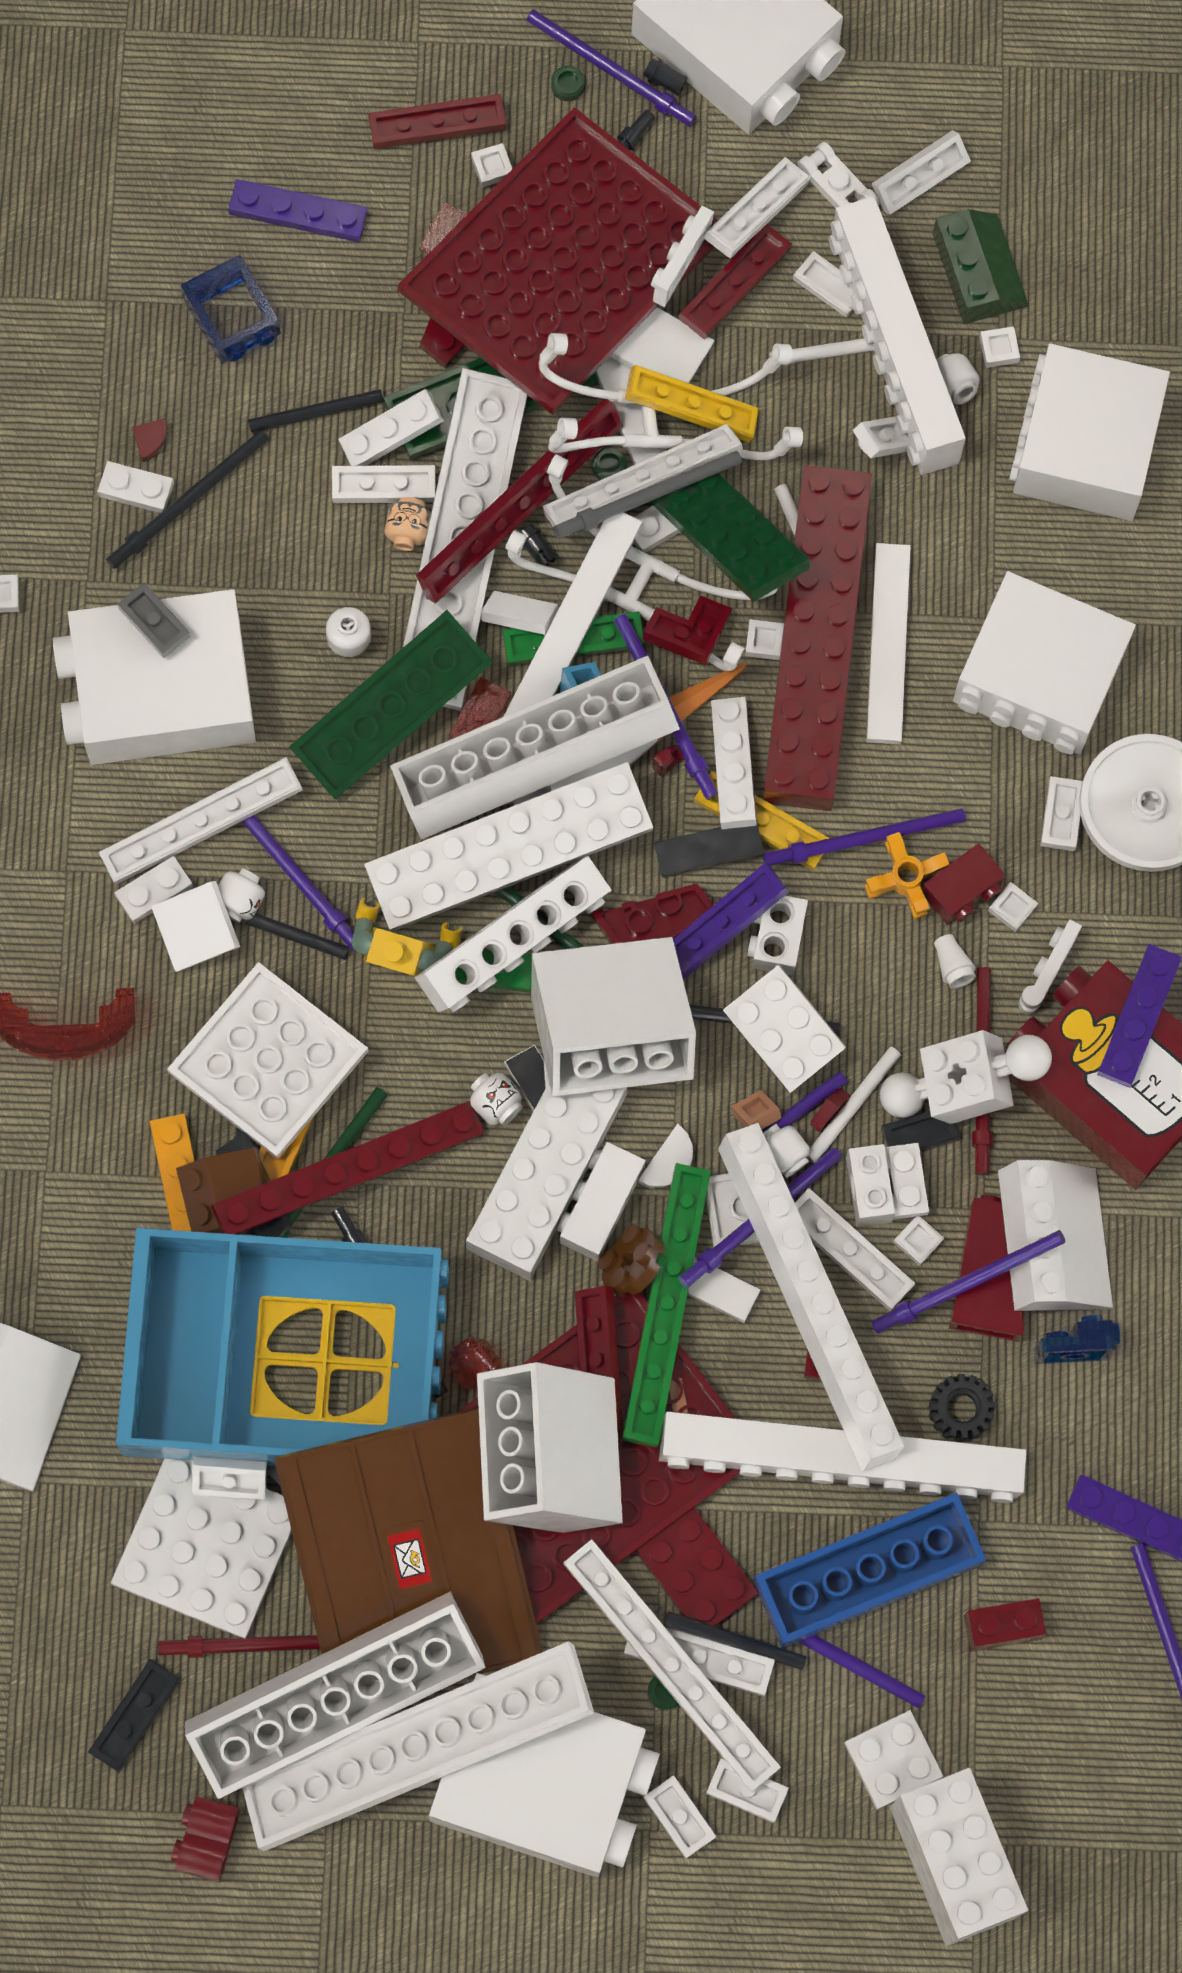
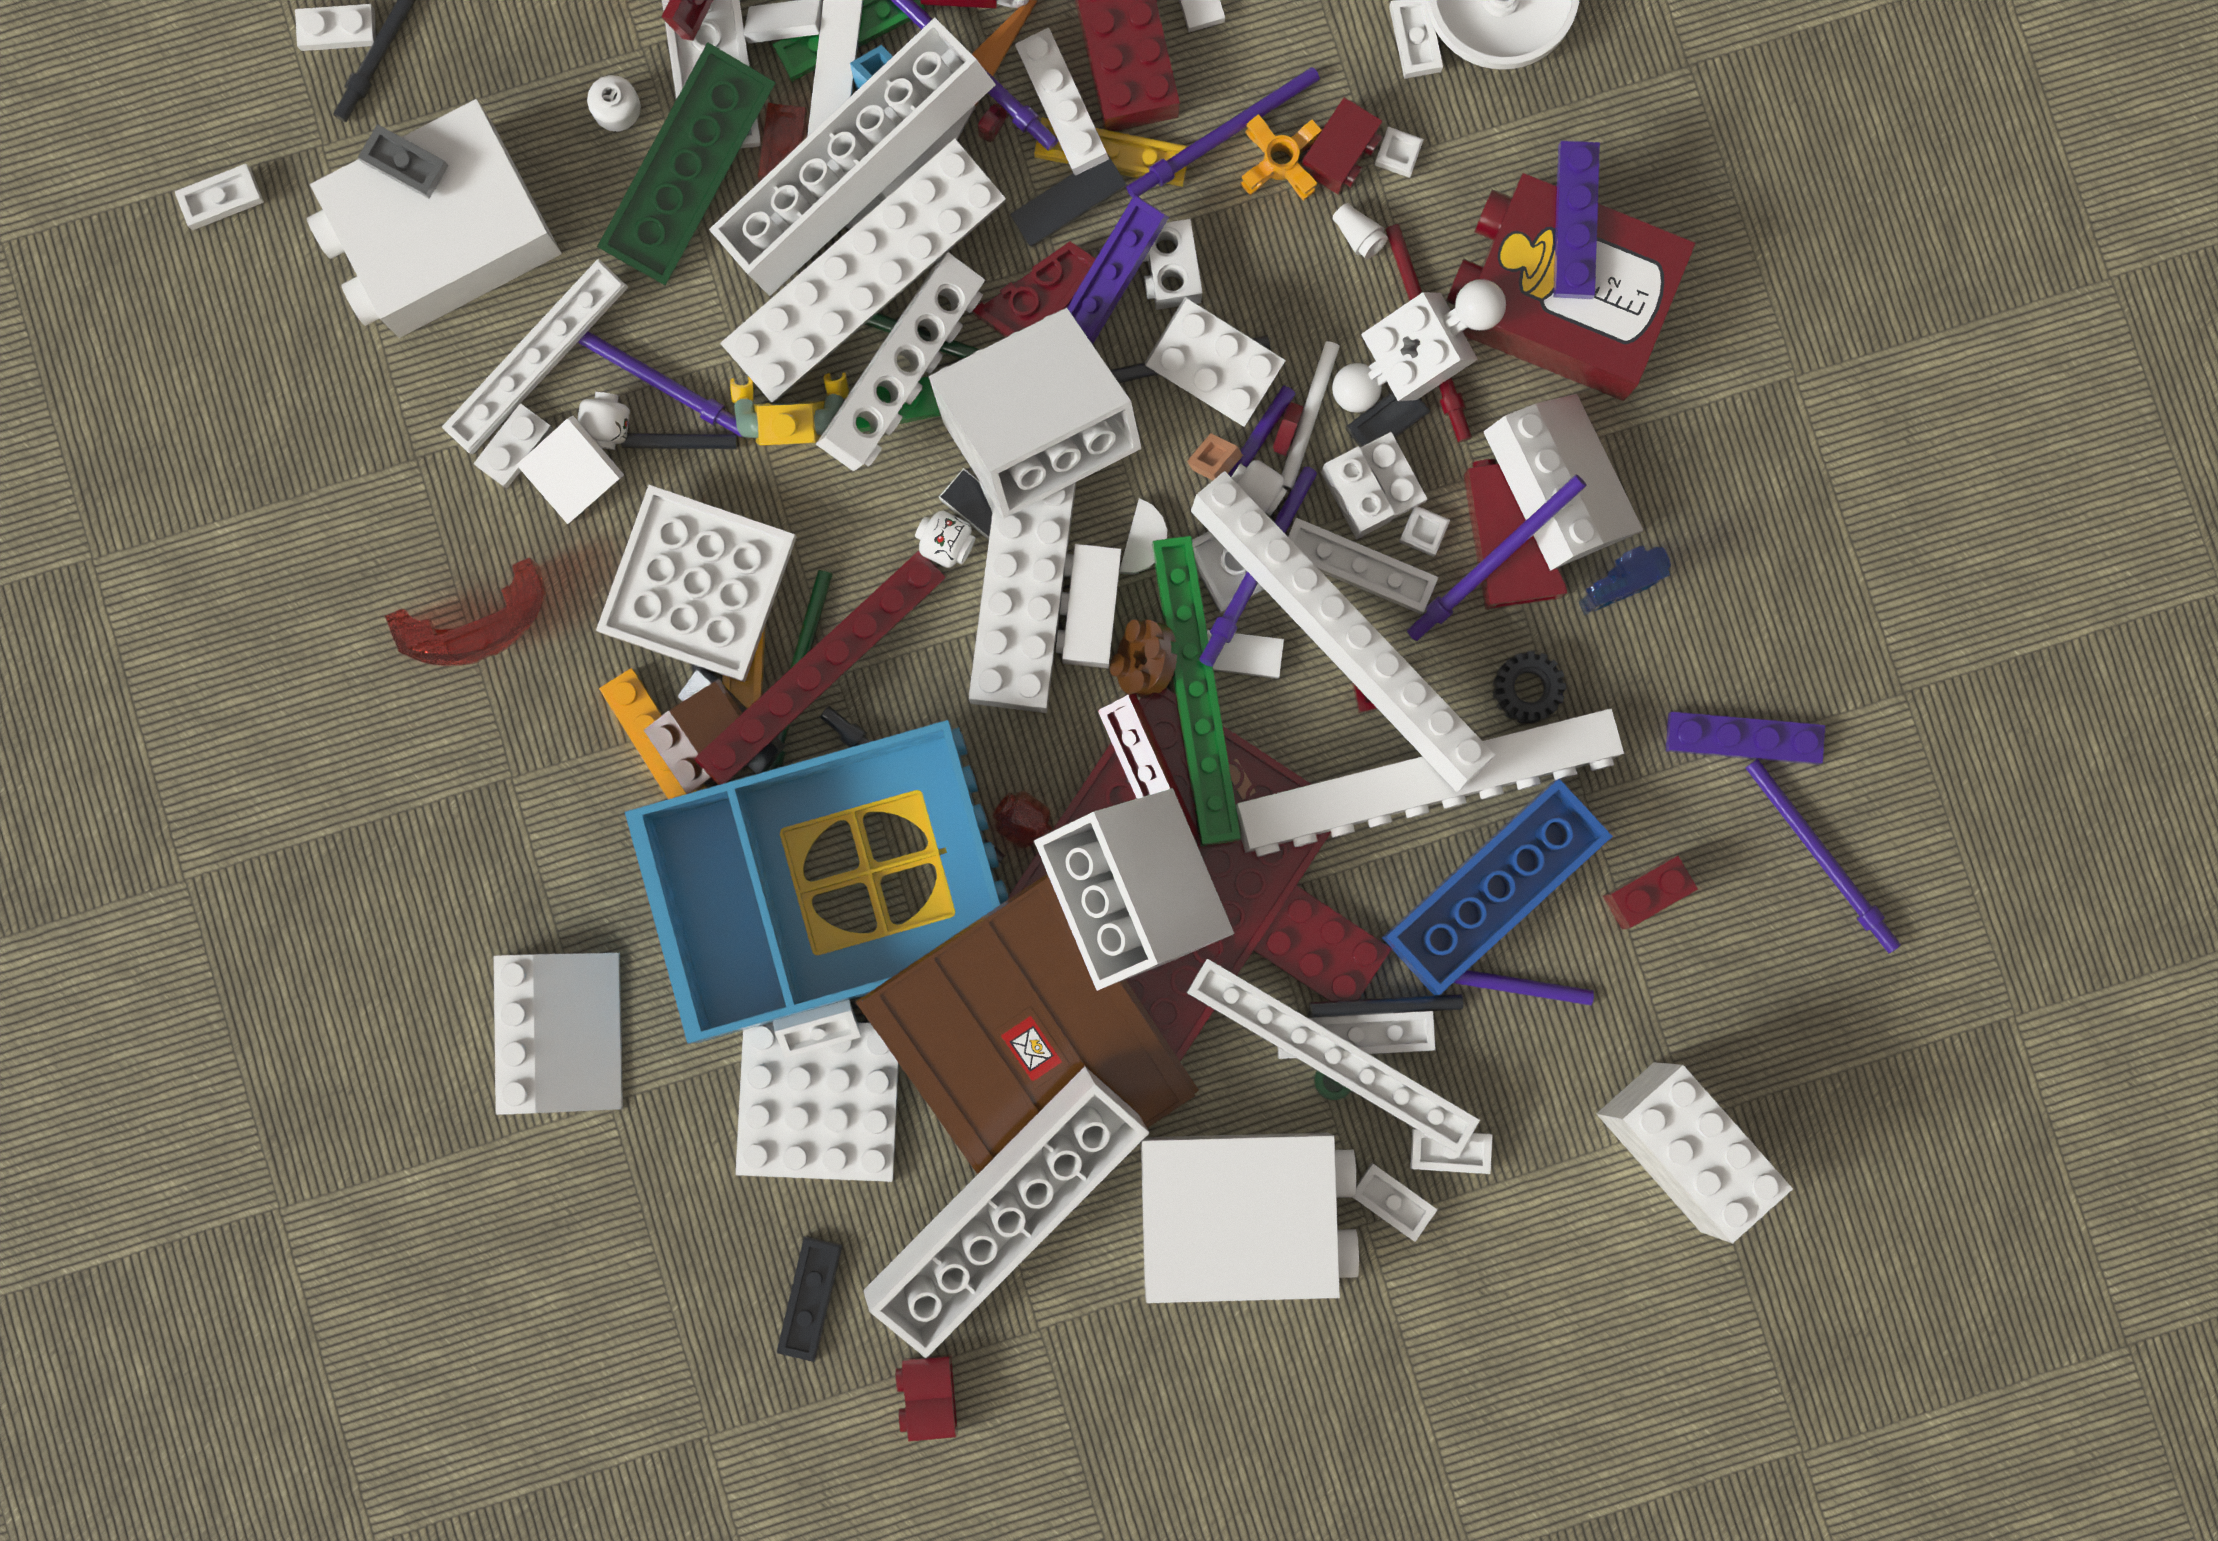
camera: 20 degrees left, 10 degrees up
(197, 1646) = (846, 1206): dark red bar -> none
(419, 1746) = (1115, 1234): white plate -> none
(893, 1759) = (1584, 1066): white plate -> none
(1048, 968) = (1459, 203): white plate -> none

